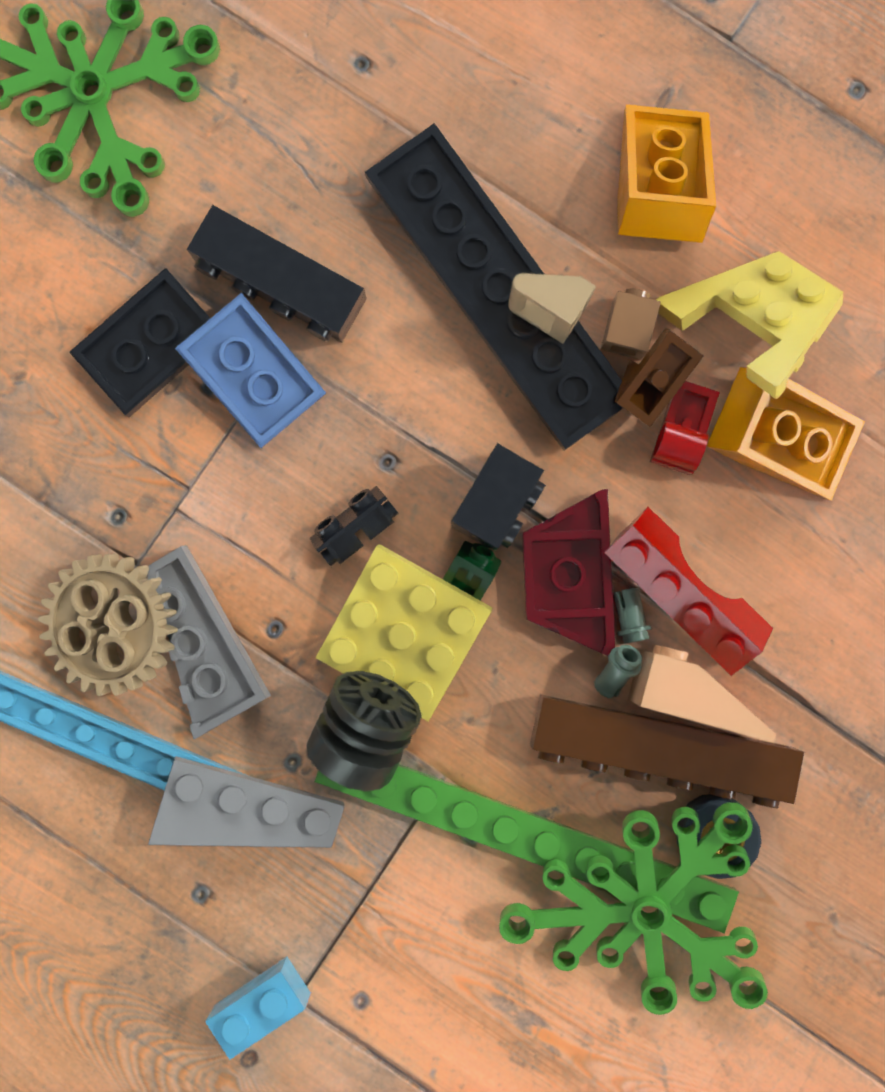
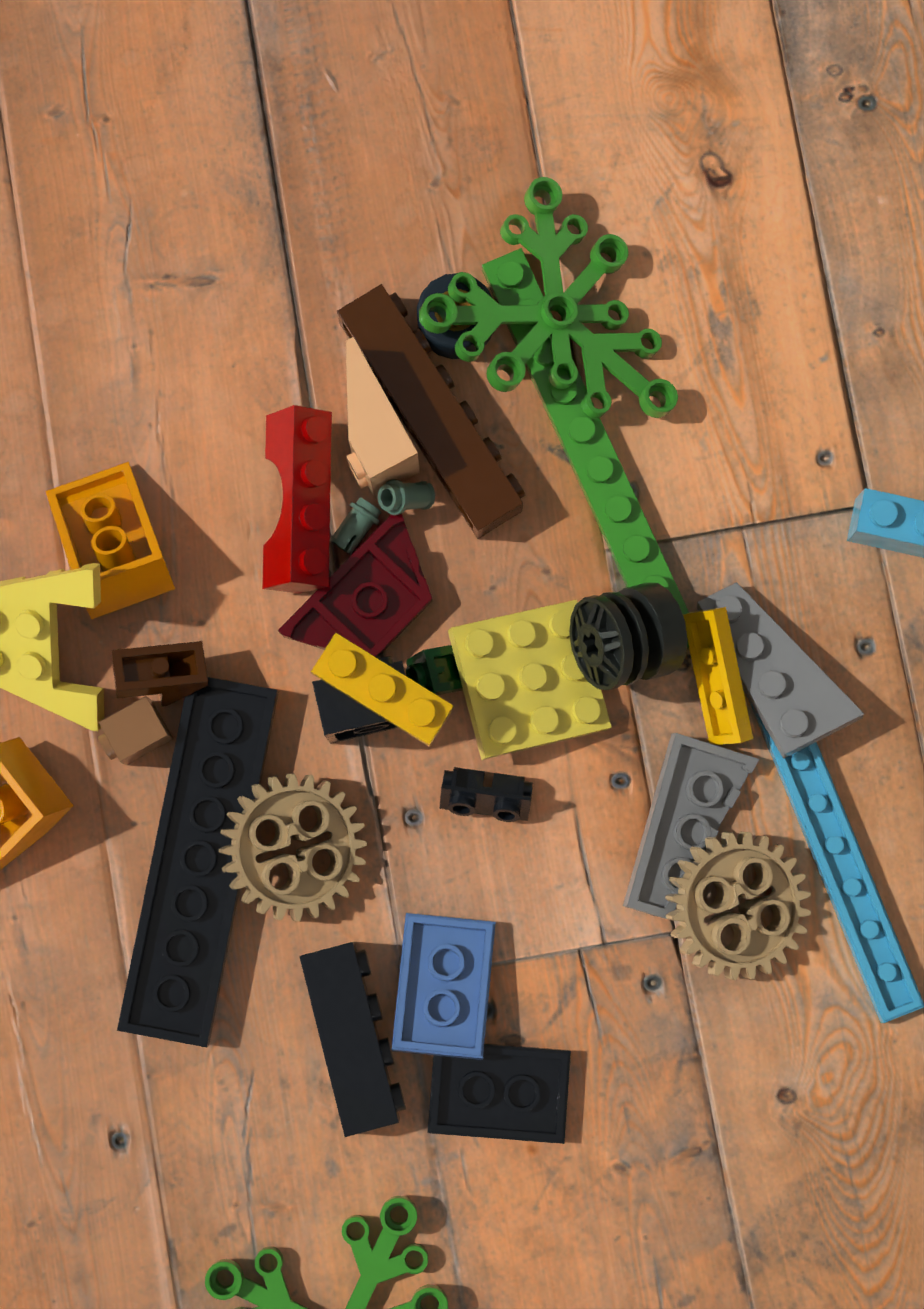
camera: 135 degrees left, 5 degrees down
(275, 767) = (718, 676): none -> yellow plate
(410, 339) = (282, 808): none -> tan gear
(490, 513) = (382, 689): none -> yellow plate
(550, 301) = (180, 795): tan tile -> none
(685, 428) = (179, 616): red plate -> none

